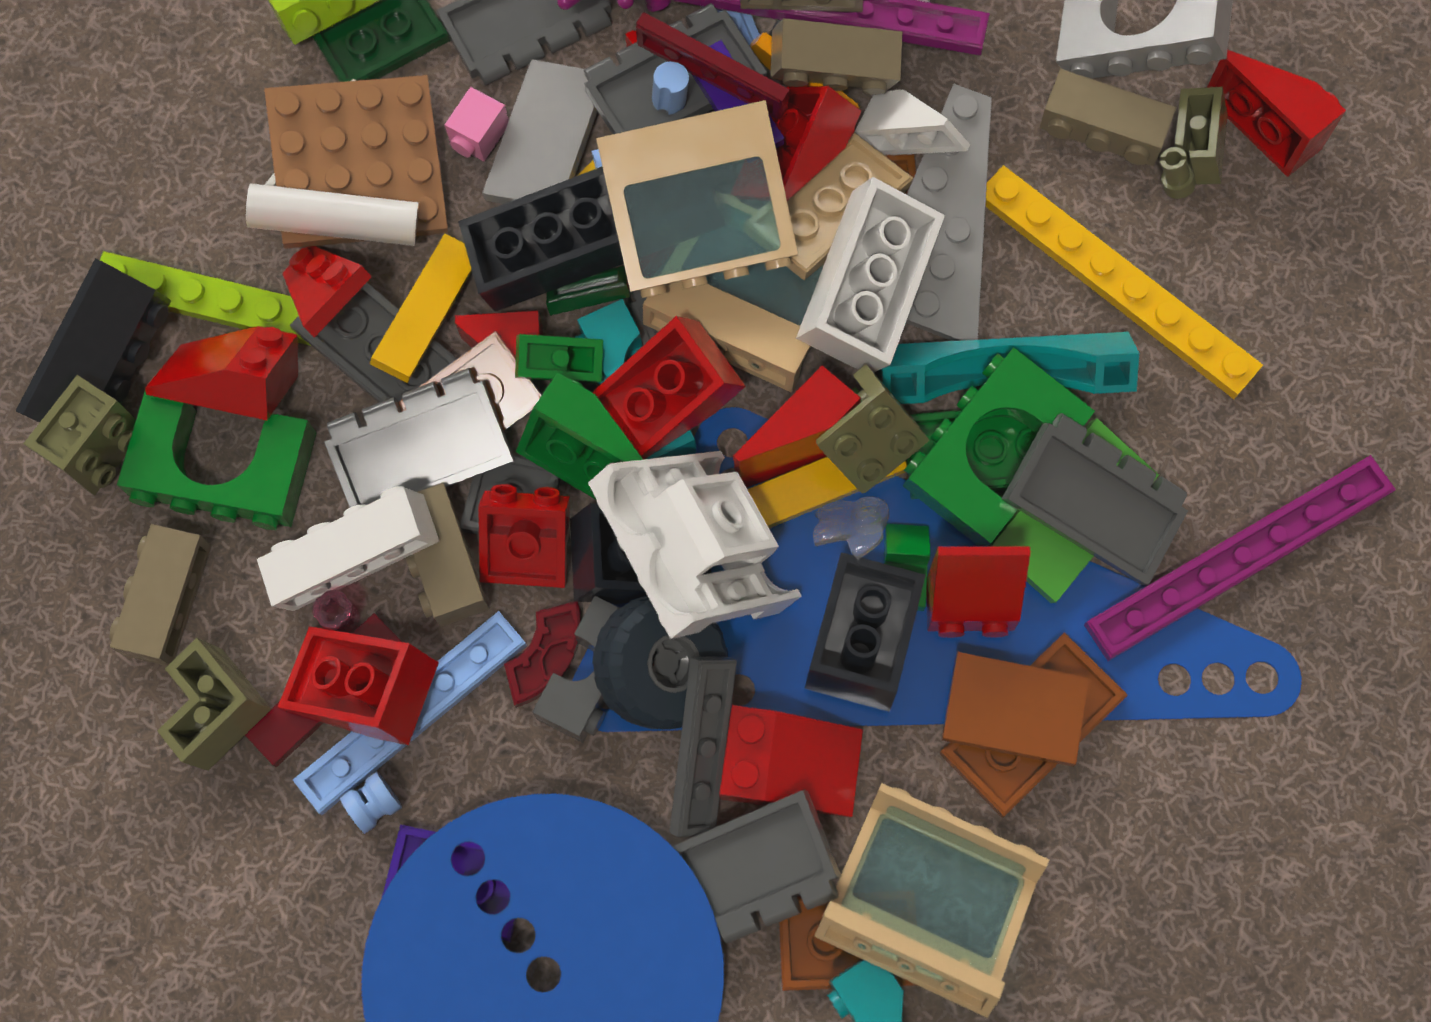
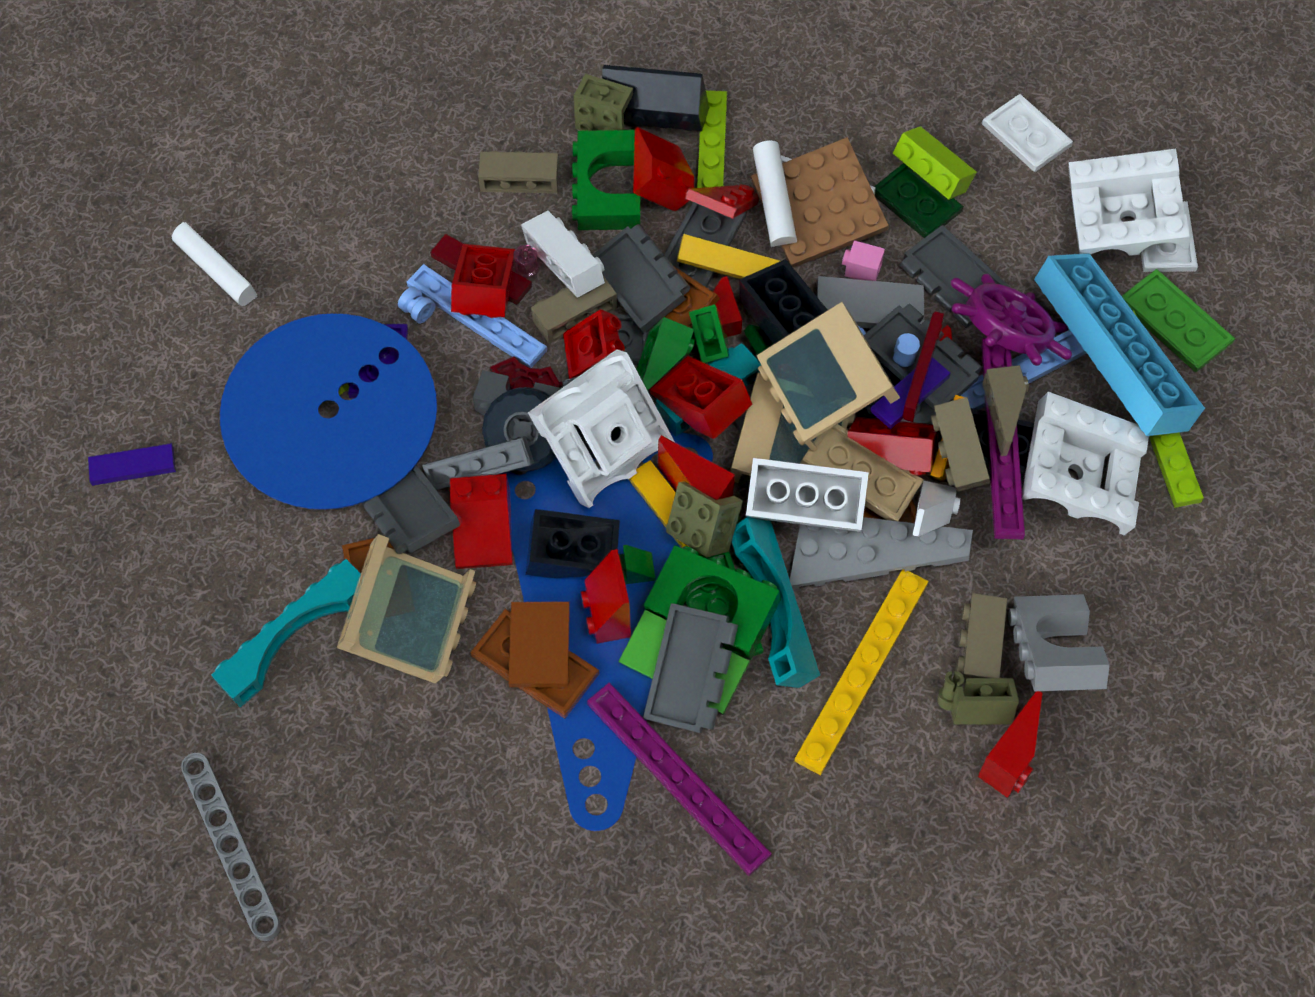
camera: 75 degrees right, 10 degrees down
(218, 709) = (457, 213): olive brick -> none
(856, 522) = (643, 529): clear plate -> none

